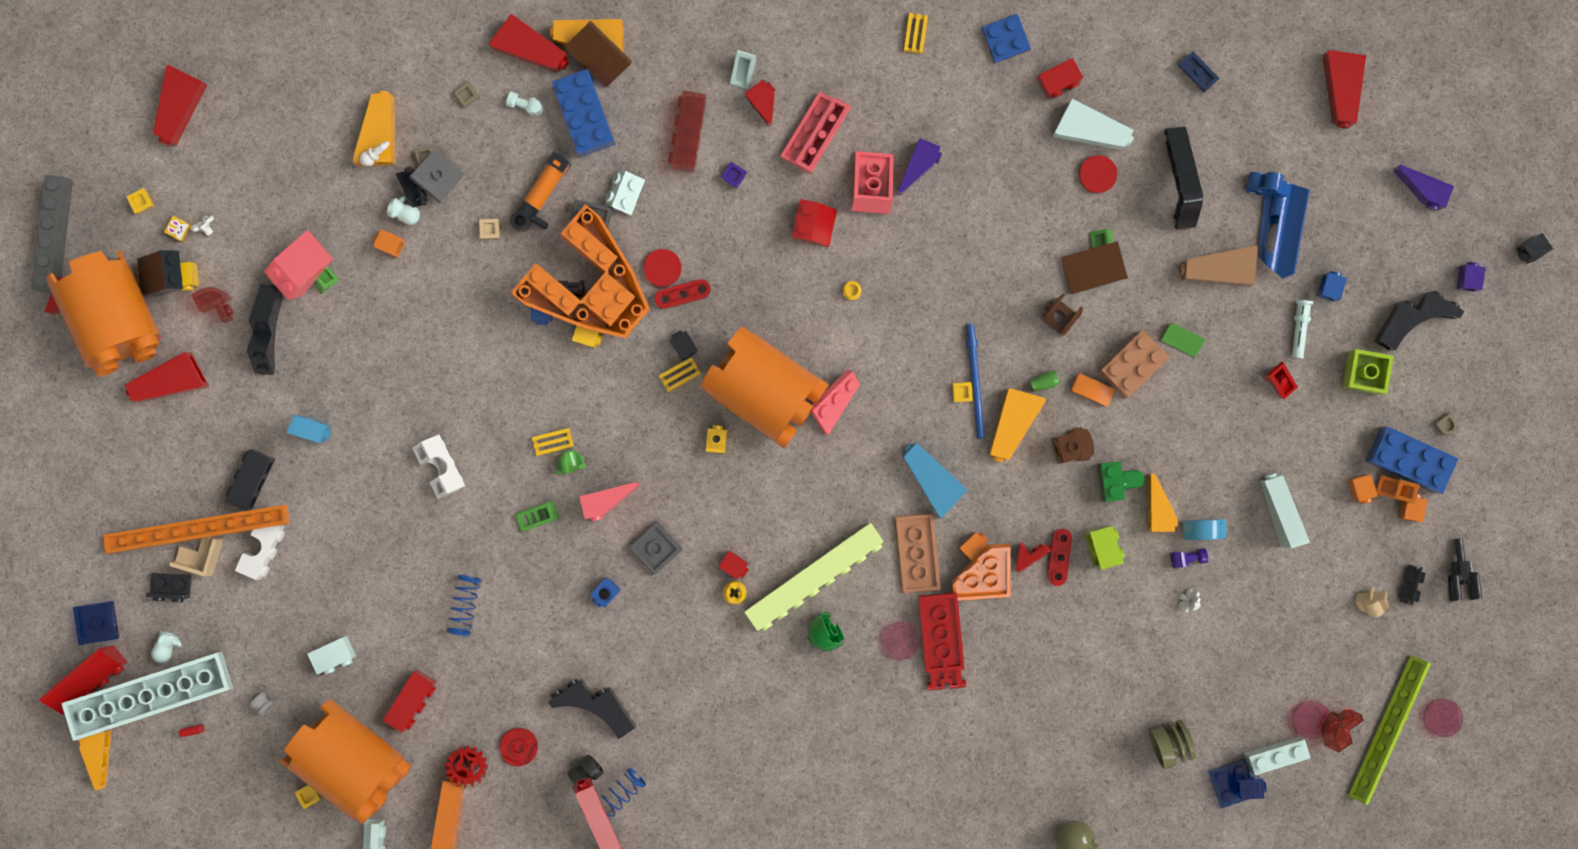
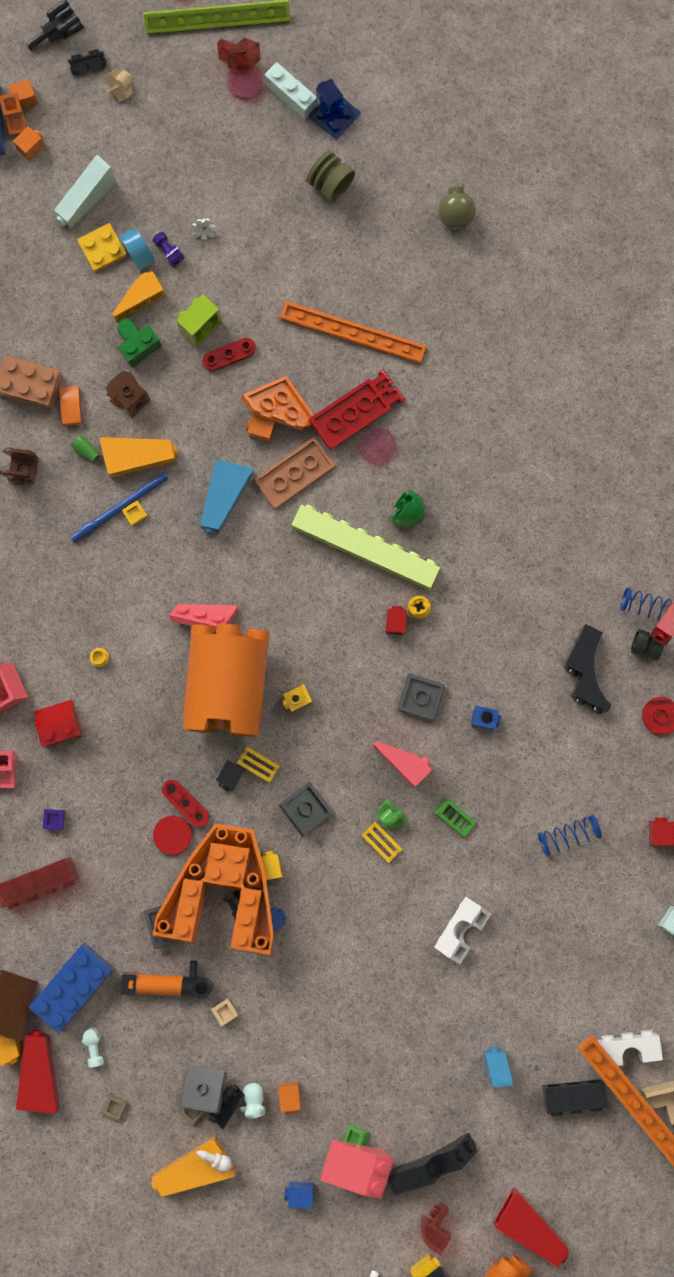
camera: 125 degrees left, 5 degrees down
(306, 206) = (299, 1195): none -> blue brick
(617, 393) = (305, 809): none -> pearl dark grey hinge
(624, 192) = (123, 909): light aqua bracket -> none
(1016, 680) = (353, 332): none -> orange tile
(1026, 559) = (247, 379): red slope -> none
(1225, 499) = (102, 247): none -> yellow plate

